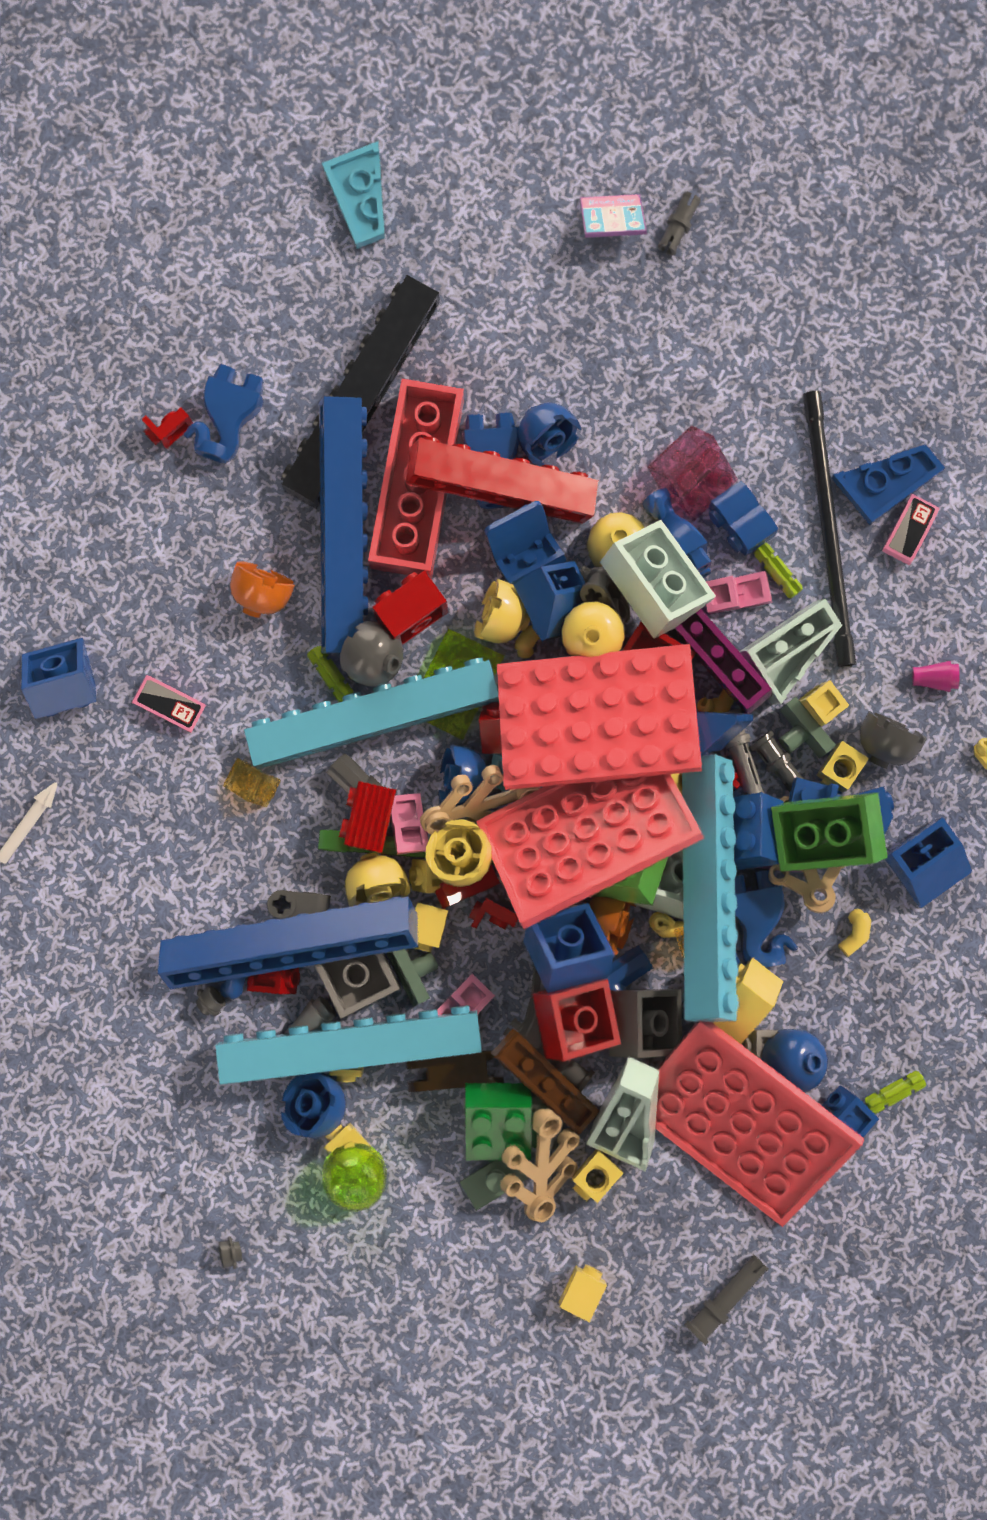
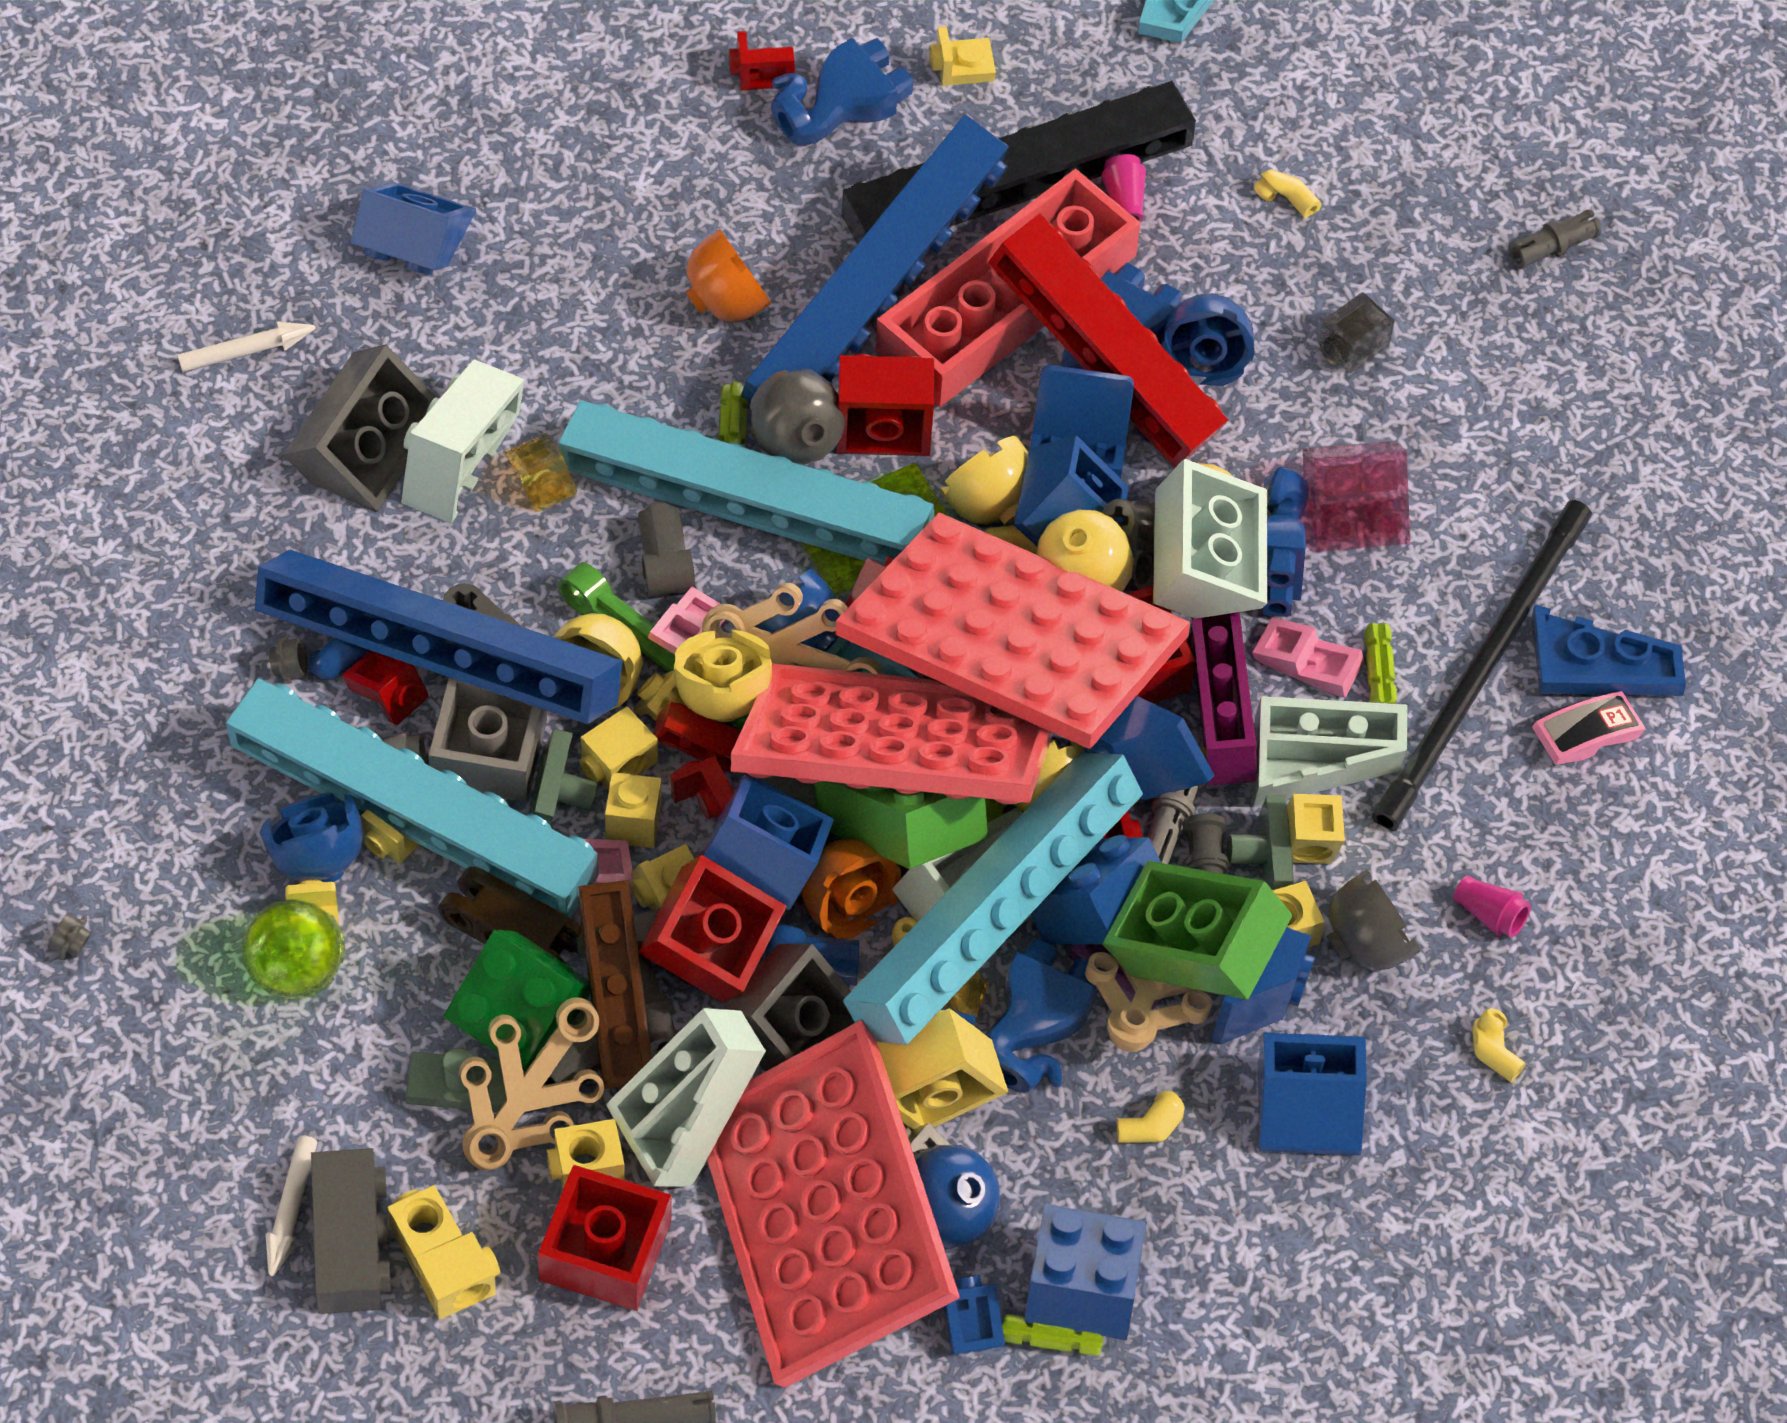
camera: 35 degrees right, 25 degrees down
(137, 829) = (359, 428): none -> dark grey slope
(168, 703) = (516, 331): slope -> none
(193, 797) = (456, 435): none -> light aqua wedge
(274, 339) = (961, 59): none -> light yellow bracket
(368, 816) = (647, 573): red brick -> none
(428, 362) = (1125, 183): none -> dark pink cone
(464, 957) = (633, 809): none -> light yellow brick
(477, 1339) = (280, 1240): none -> white piece
(509, 1311) = (349, 1231): none -> dark grey brick
(512, 983) = (656, 877): none -> light yellow bracket
(514, 294) = (1291, 188): none -> light yellow arm
(553, 1293) = (417, 1208): none -> light yellow brick
(612, 216) = (1475, 178): piece -> none
(620, 368) = (1355, 333): none -> clear smoke brick
(643, 1219) = (605, 1237): none -> red brick
(742, 518) = (1378, 578): blue brick -> none
(894, 1052) = (1085, 1271): none -> blue brick

